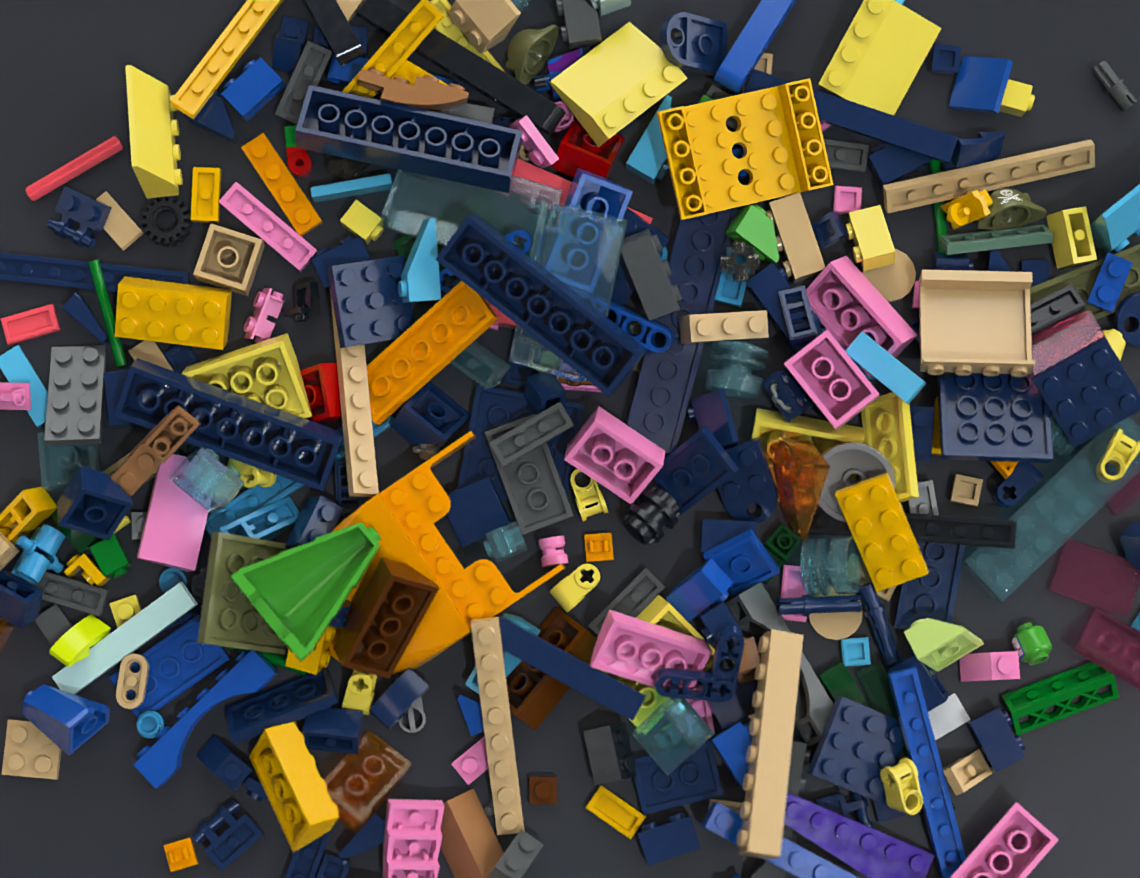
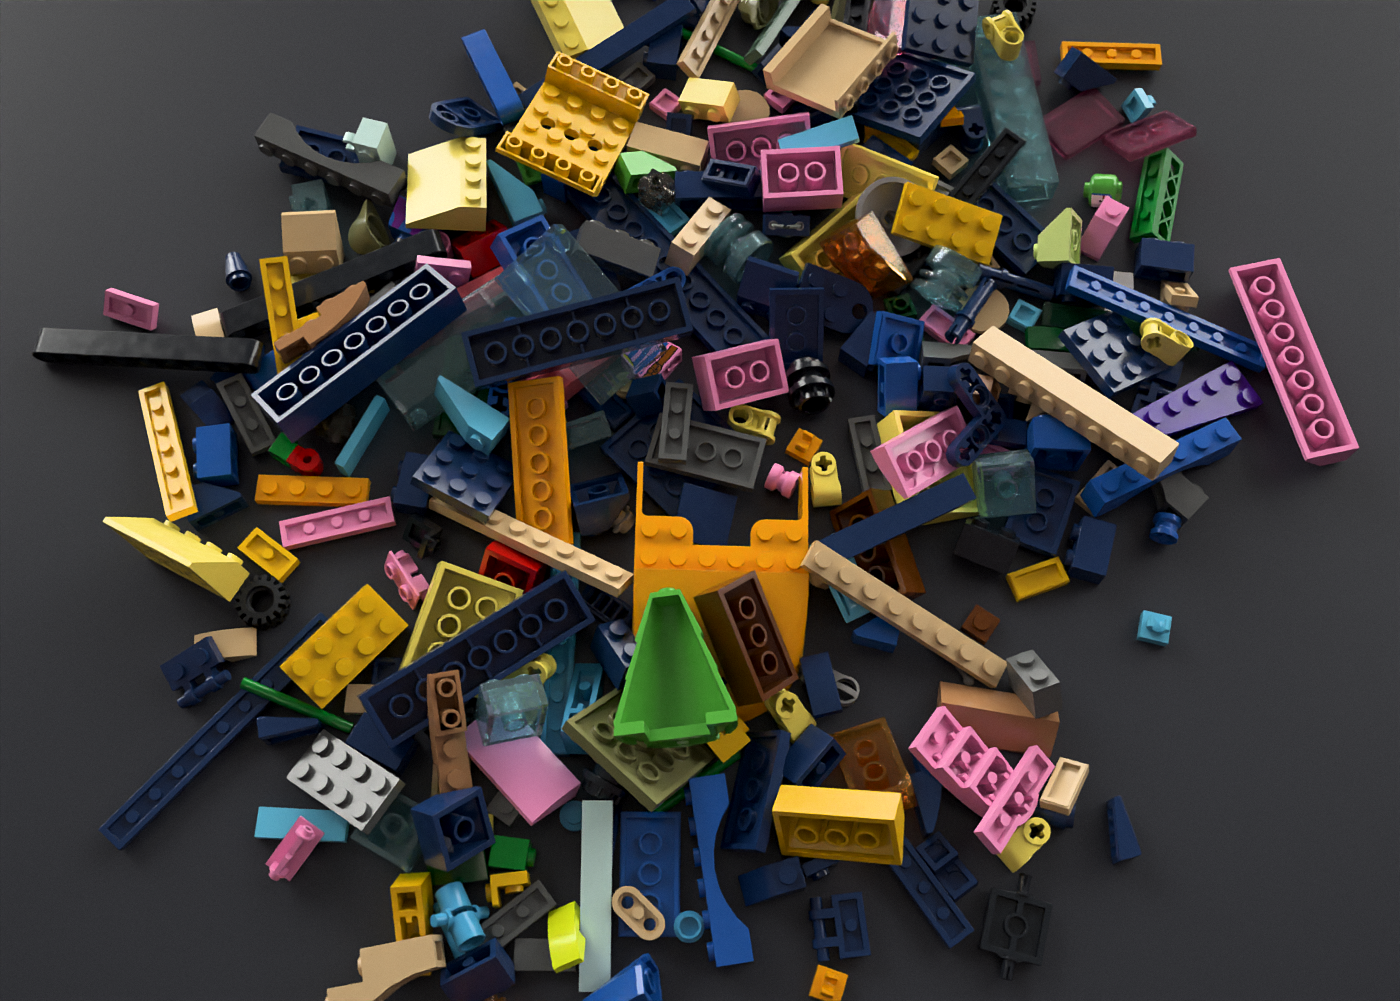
camera: 60 degrees left, 15 degrees down
(30, 324) = (251, 784): coral tile -> none
(74, 168) = (152, 650): coral axle -> none
(125, 609) = (568, 878): light yellow plate -> none
(229, 259) = (337, 568): tan brick -> none
(362, 222) = (394, 444): light yellow brick -> none
(472, 762) = (916, 662): bright pink plate -> none
(505, 542) = (748, 505): clear light blue brick -> none
(967, 208) = (737, 26): yellow hips -> none

